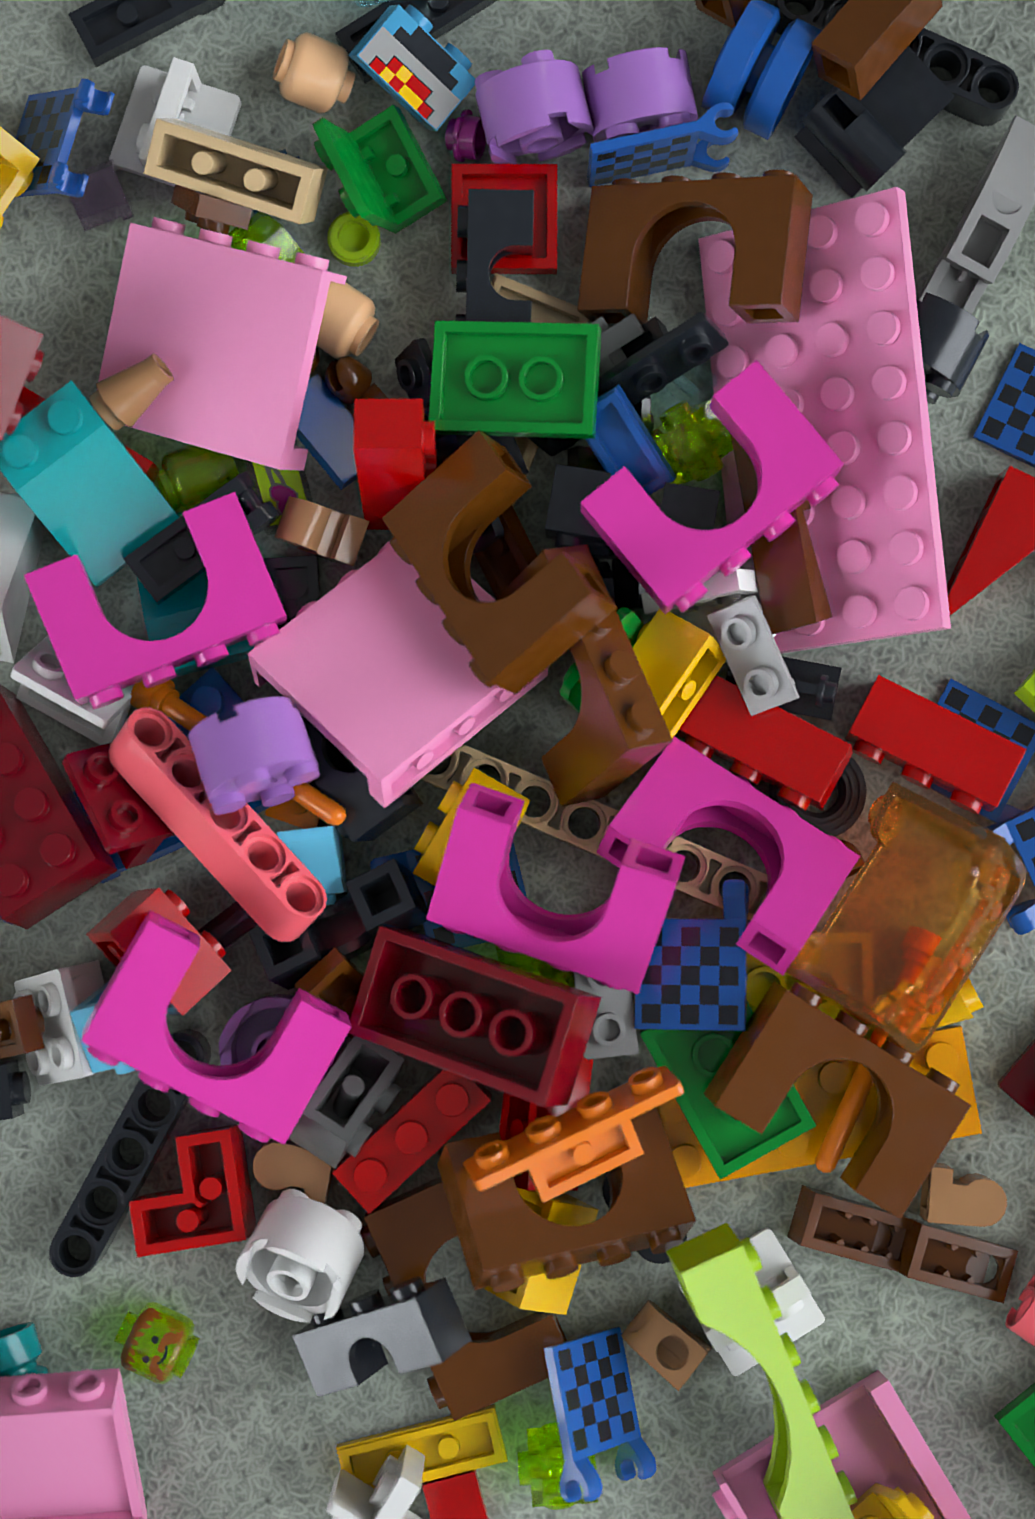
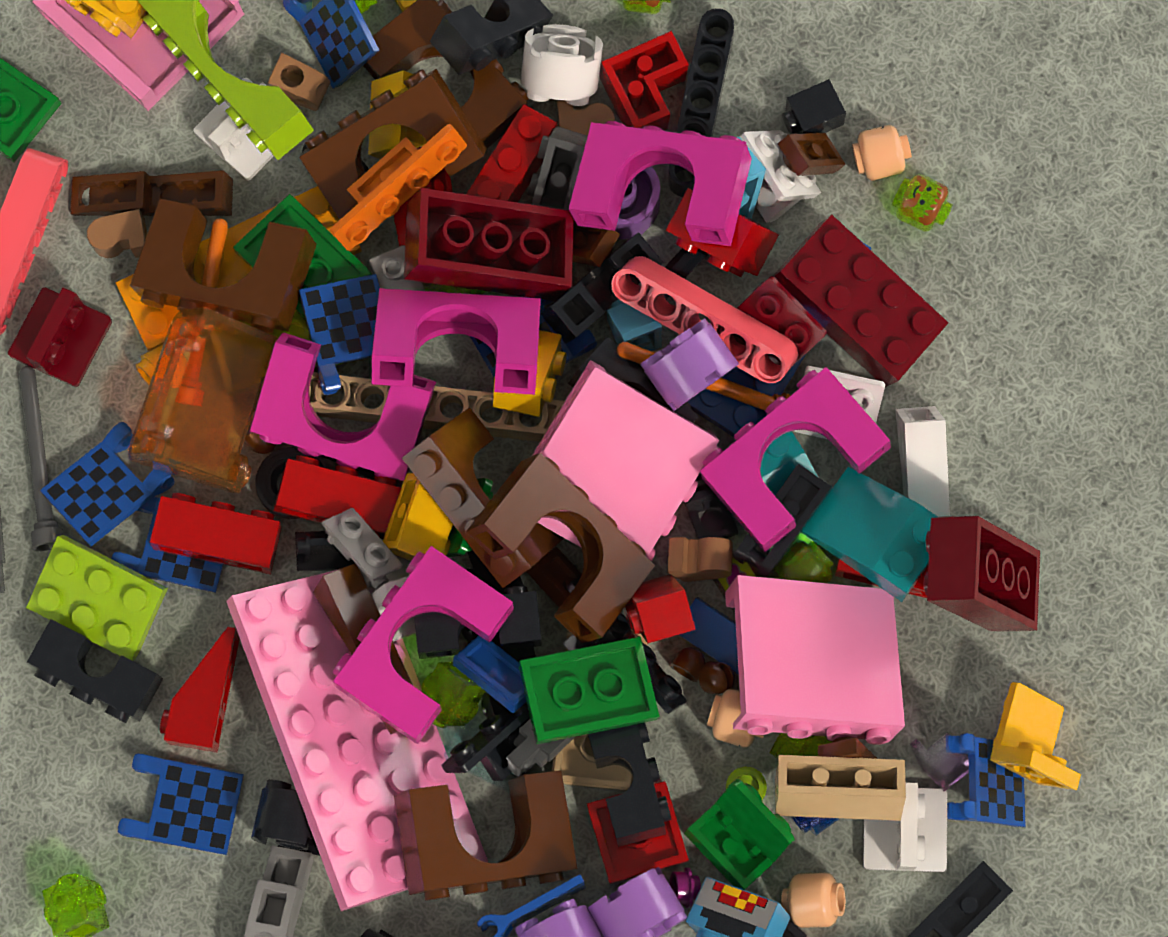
camera: 170 degrees right, 10 degrees down
(129, 393) = (865, 602): medium nougat cone -> none

